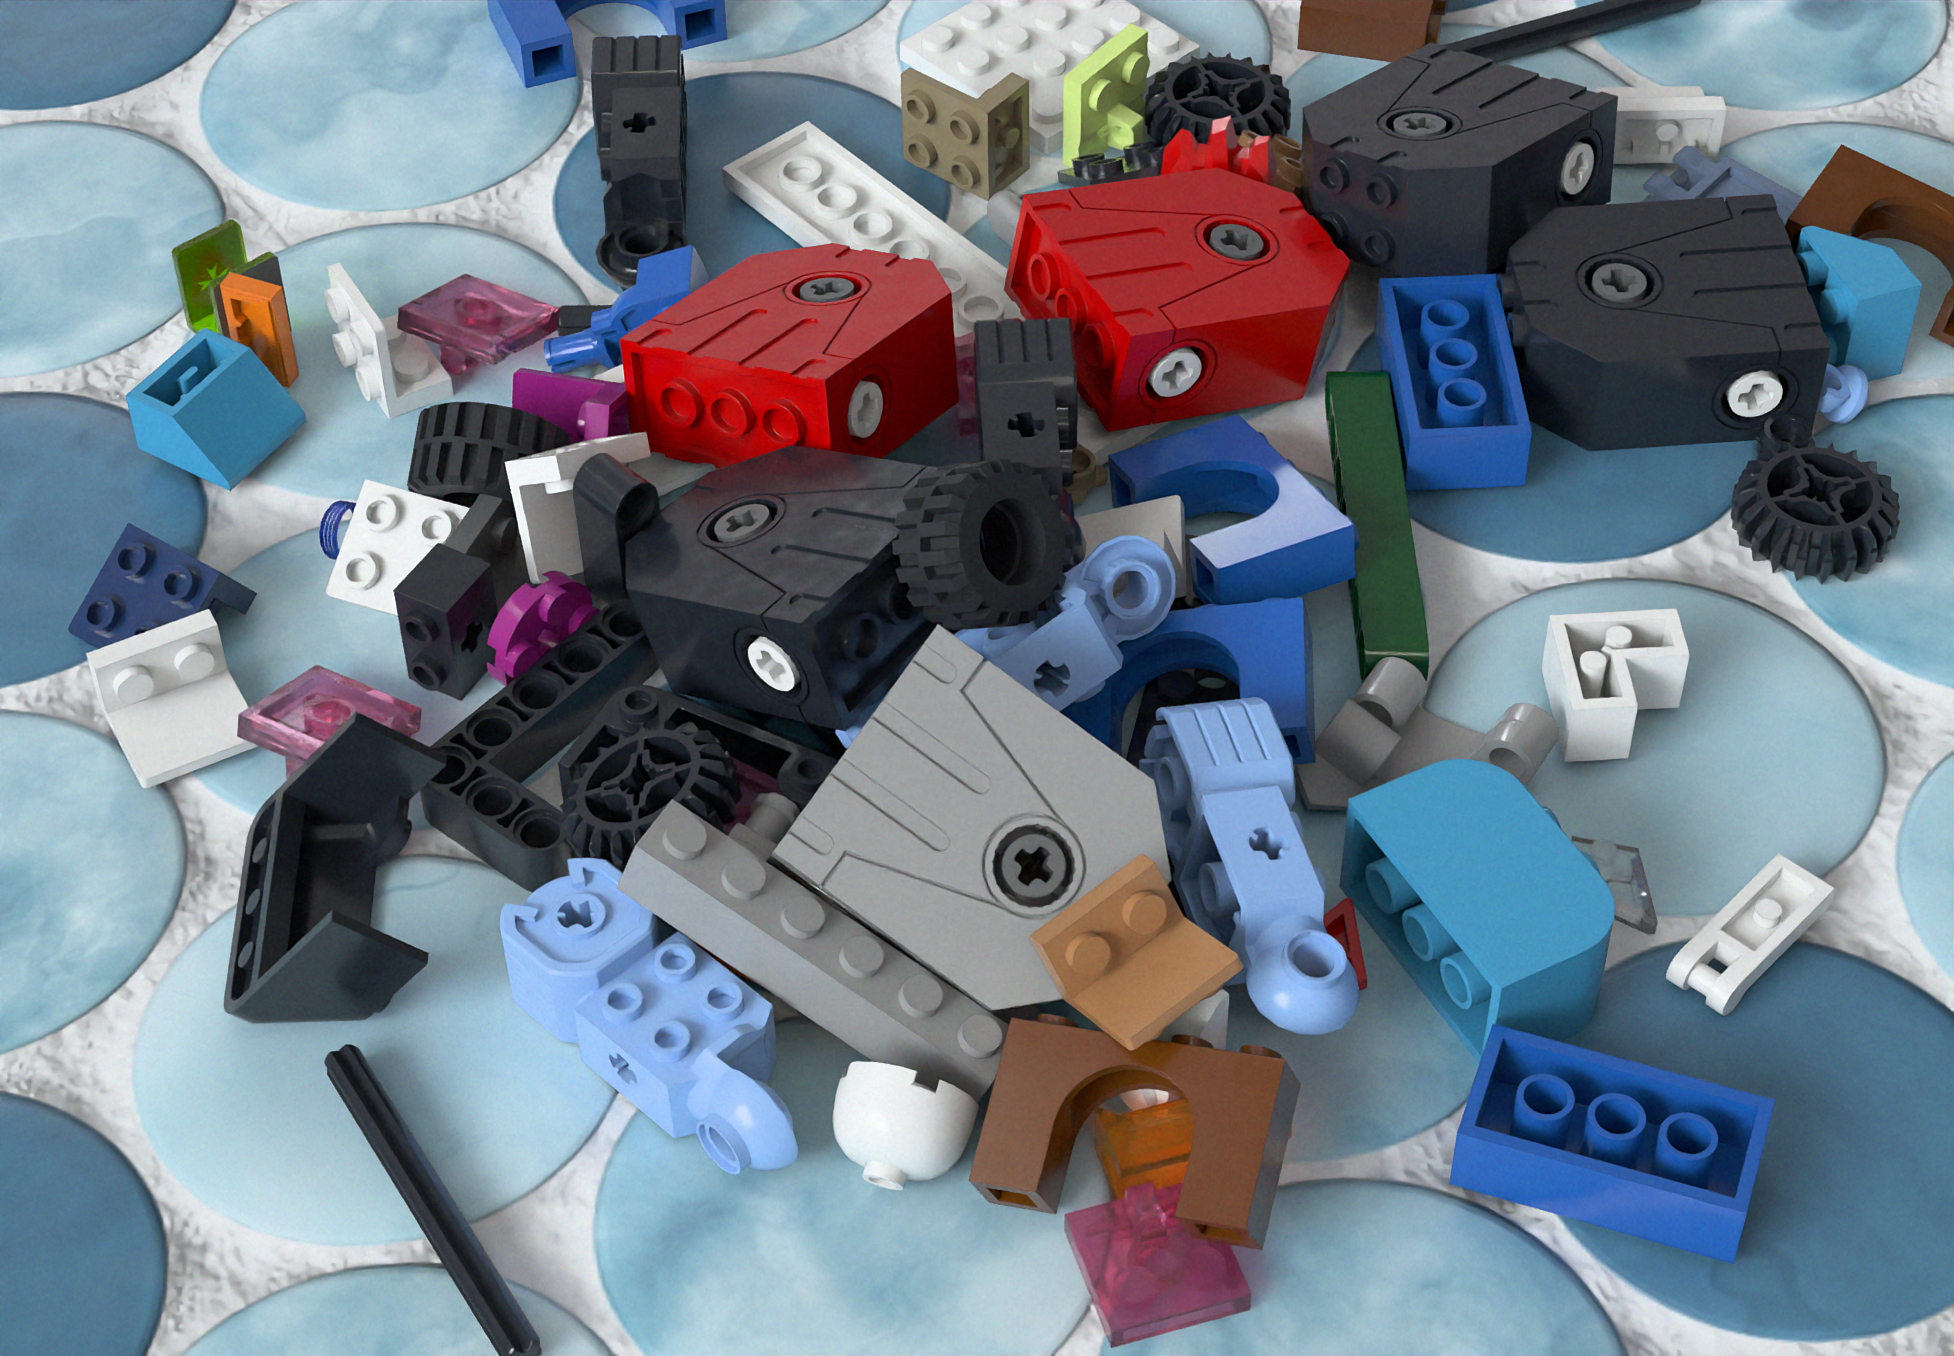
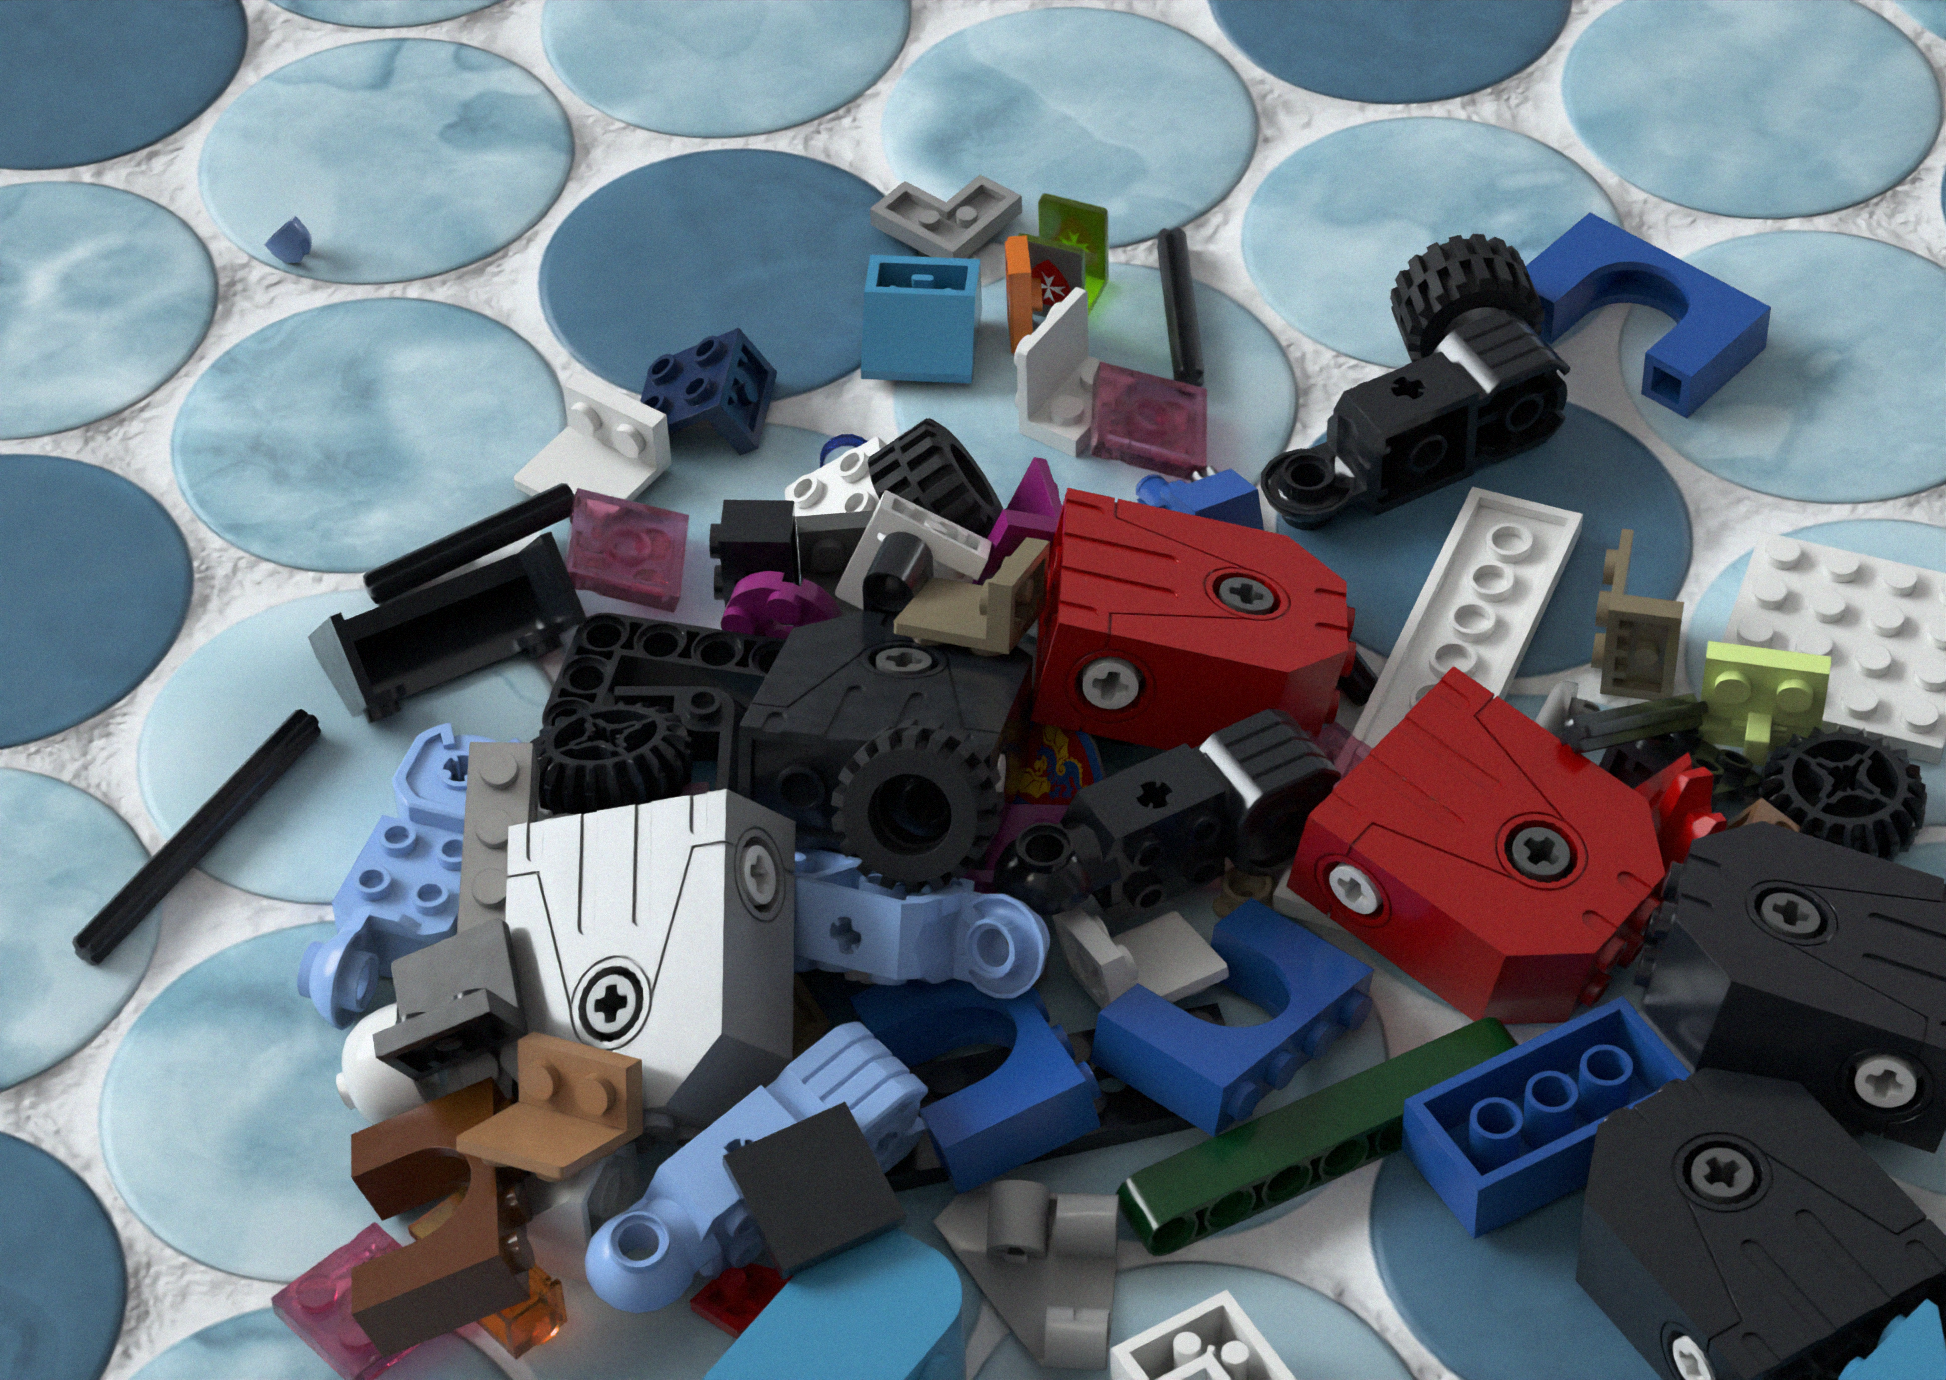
camera: 65 degrees right, 0 degrees up
(92, 361) = (947, 227): none -> light grey plate
(208, 843) = (469, 544): none -> black axle
(321, 251) = (1180, 307): none -> black axle
(540, 75) = (1460, 285): none -> black tyre
(735, 441) = (978, 616): none -> dark tan bracket
(919, 996) = (454, 1002): none -> bracket
(1115, 152) = (1633, 723): none -> black axle
(1340, 807) = (813, 1190): none -> black tile

